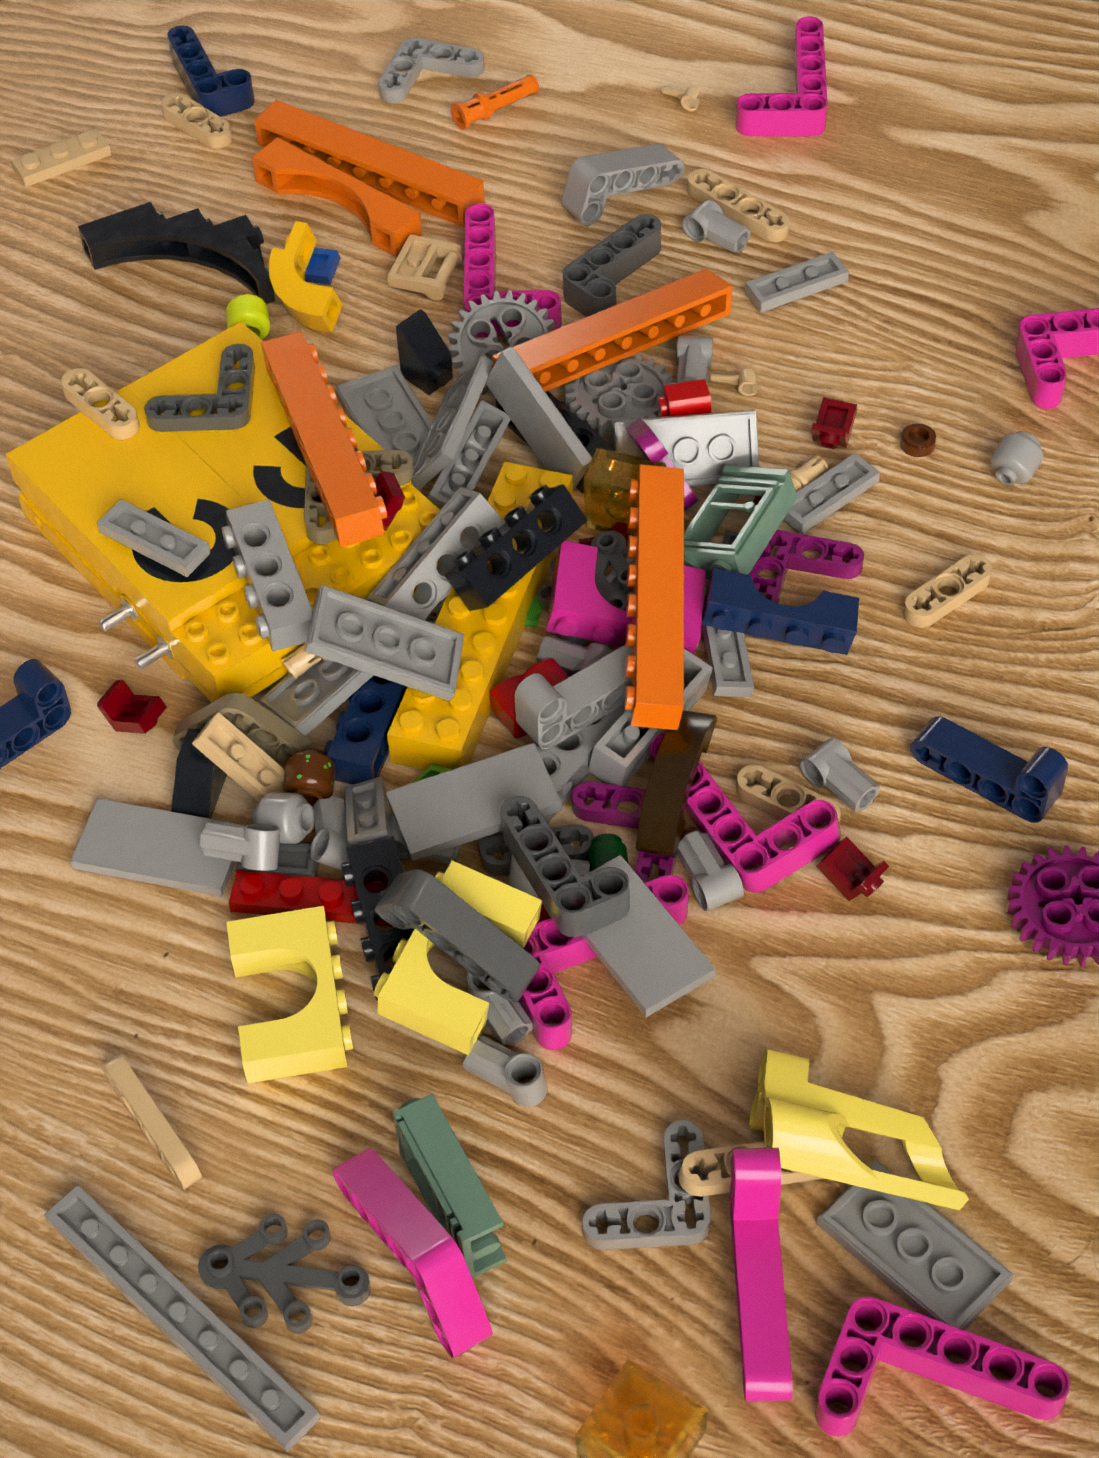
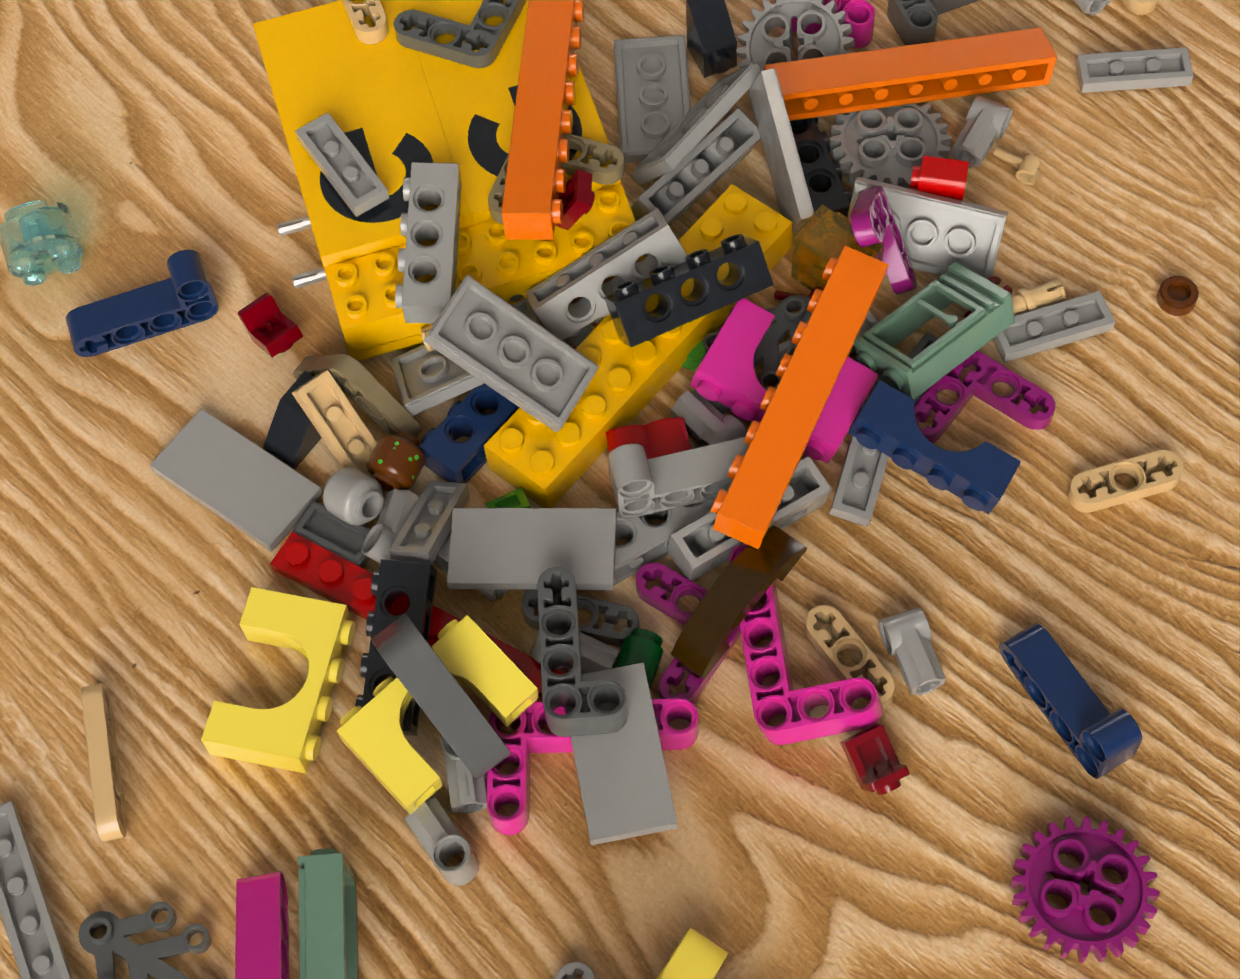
camera: 25 degrees right, 10 degrees up
(251, 844) = (308, 514): light grey piece -> none
(711, 878) = (732, 713): light grey piece -> none
(834, 423) = (1094, 248): dark red bracket -> none

